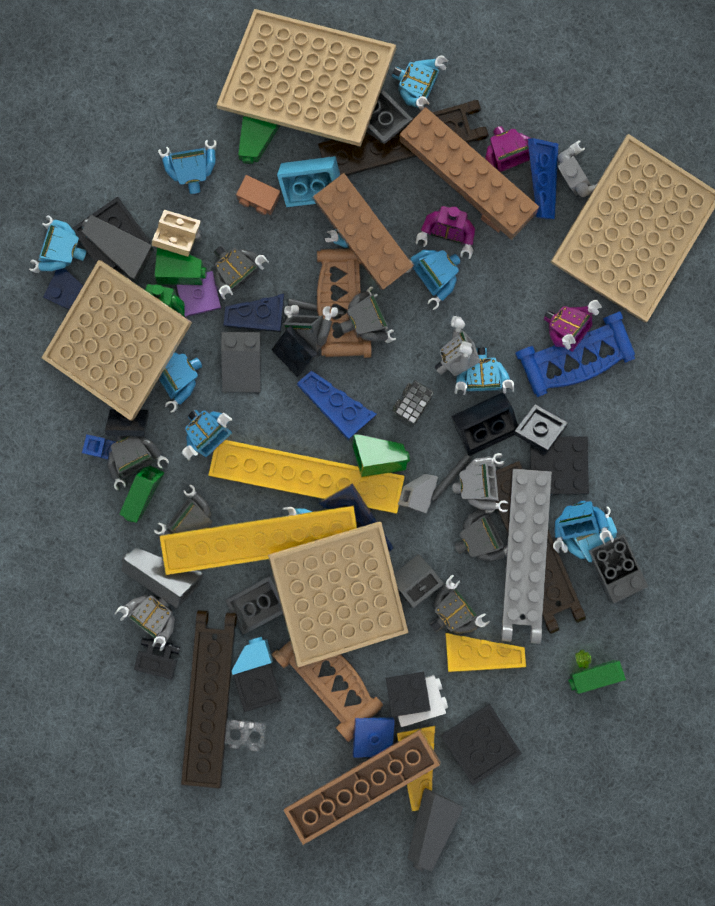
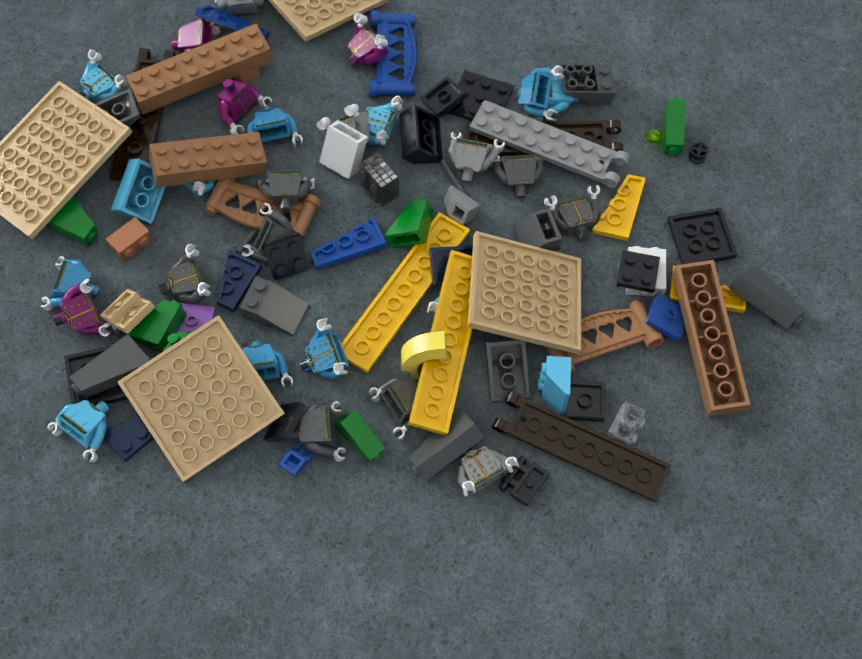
camera: 65 degrees left, 20 degrees down
(162, 191) = (81, 311): none -> magenta torso
(233, 522) = (421, 349): none -> light yellow arch
(431, 355) = (343, 149): none -> white brick
(584, 711) = (698, 153): none -> black wheel

